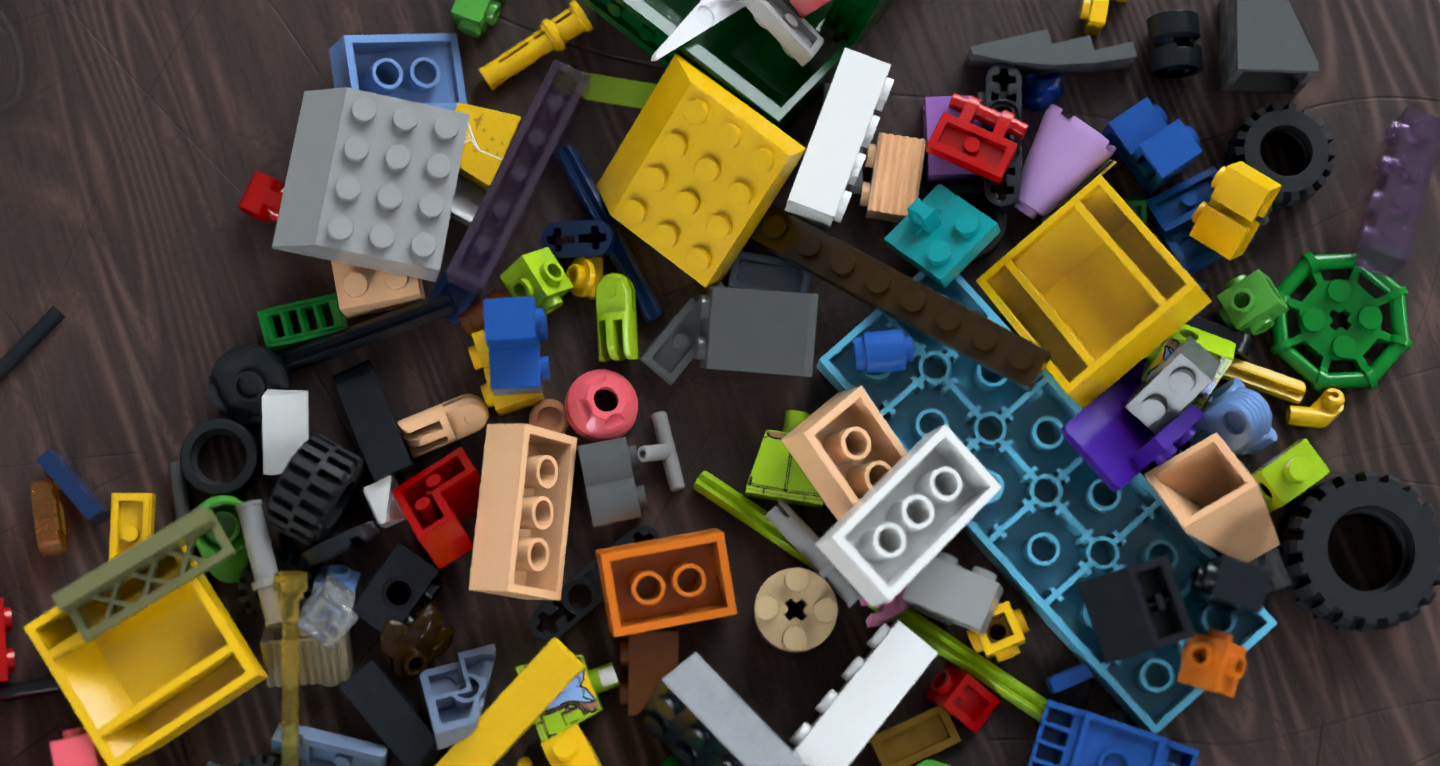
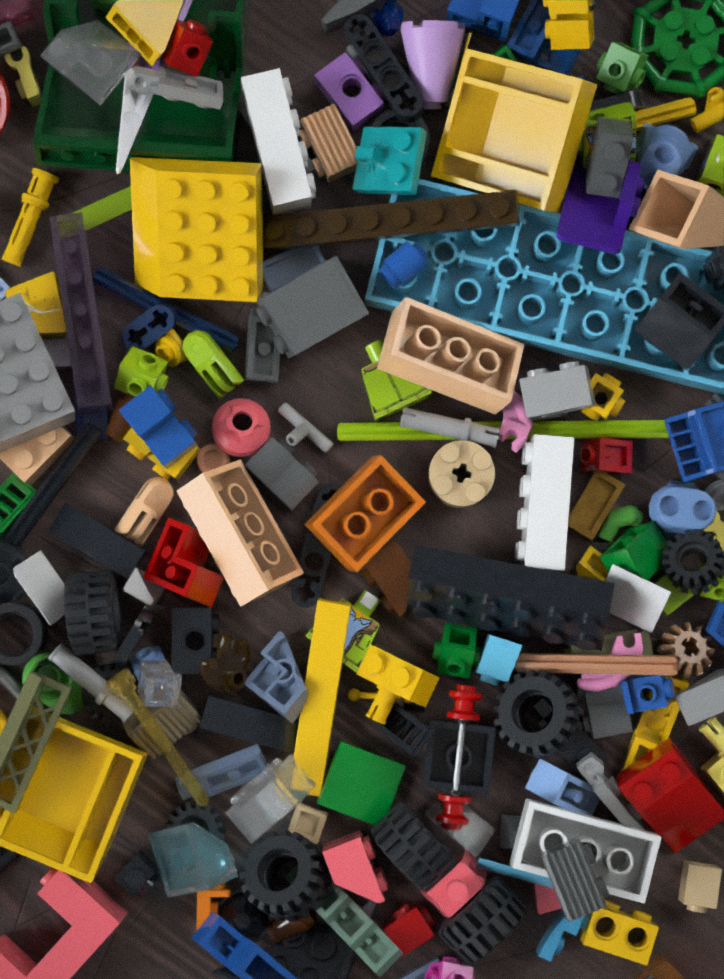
camera: 30 degrees left, 5 degrees up
(908, 516) = (496, 361): white brick -> none
(972, 146) = (371, 86): red plate -> none
(1067, 678) = (666, 396): blue tile -> none

